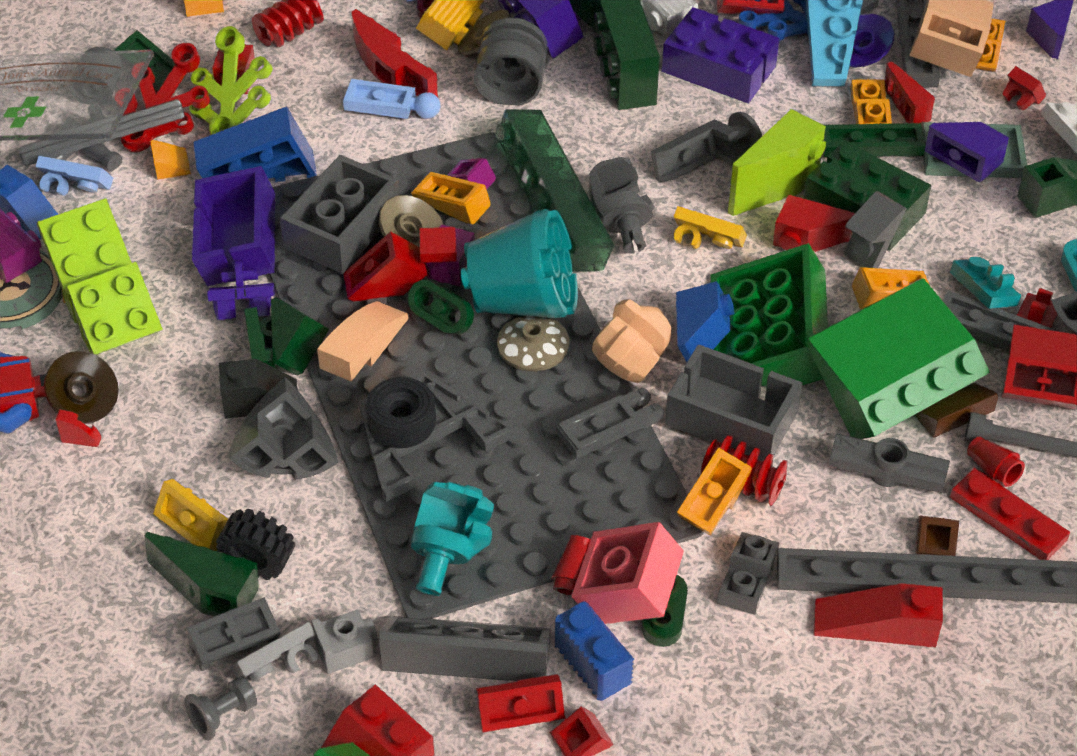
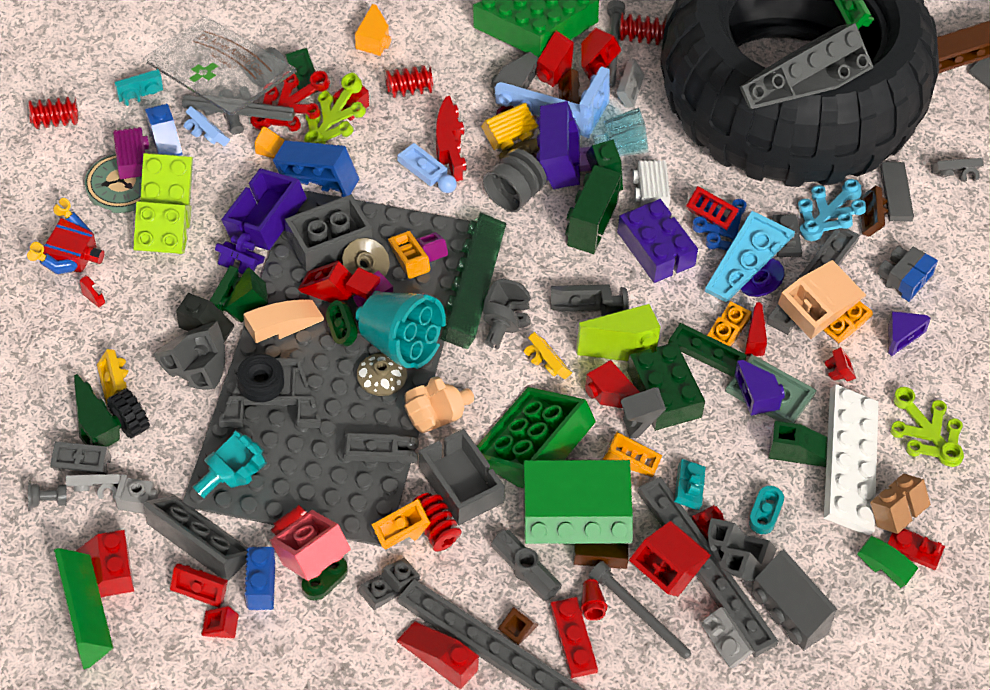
camera: 30 degrees right, 5 degrees up
(88, 373) = (122, 260): dark brown dish -> none
(702, 317) = (489, 414): blue slope -> none

